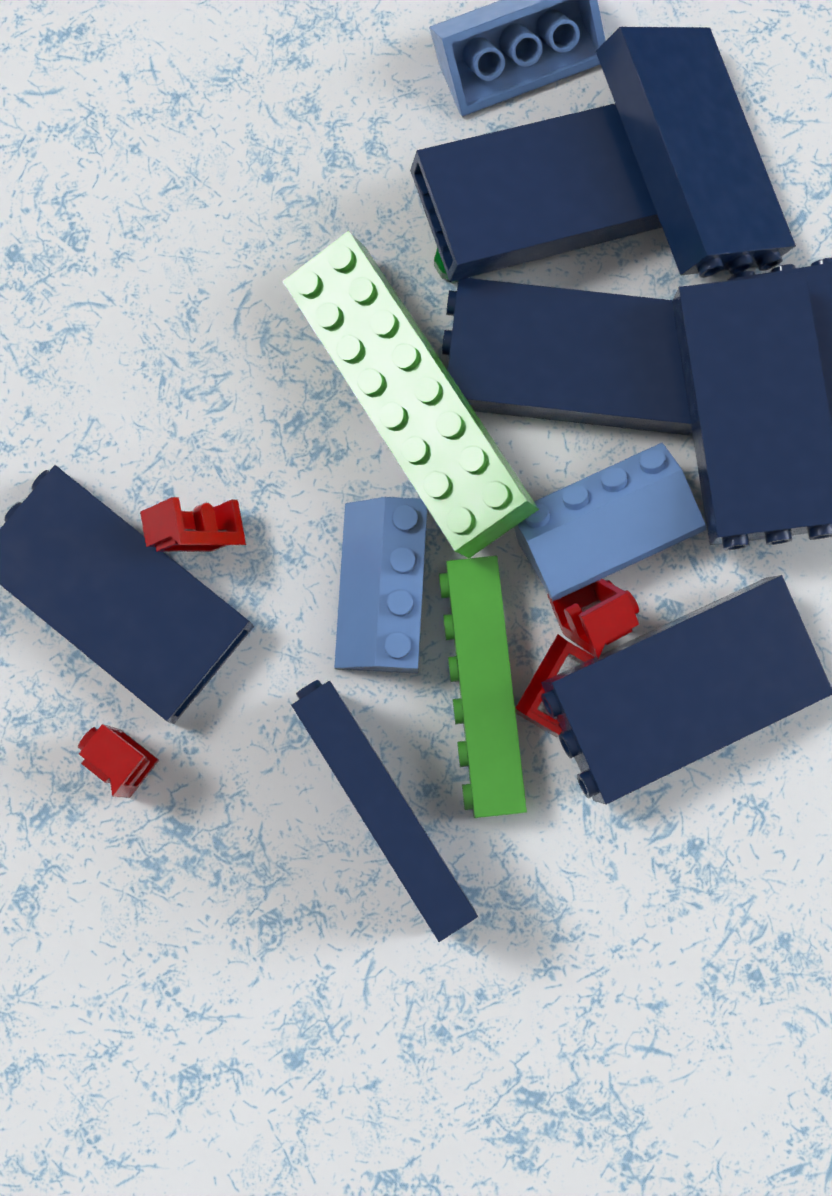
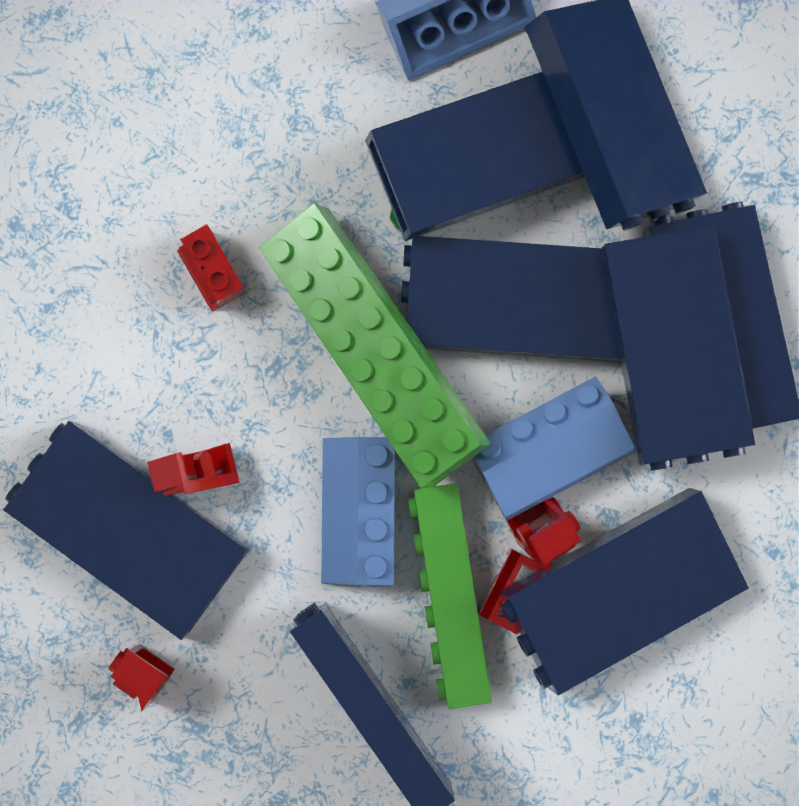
camera: 10 degrees left, 5 degrees up
(228, 306) = (210, 268): none -> red window

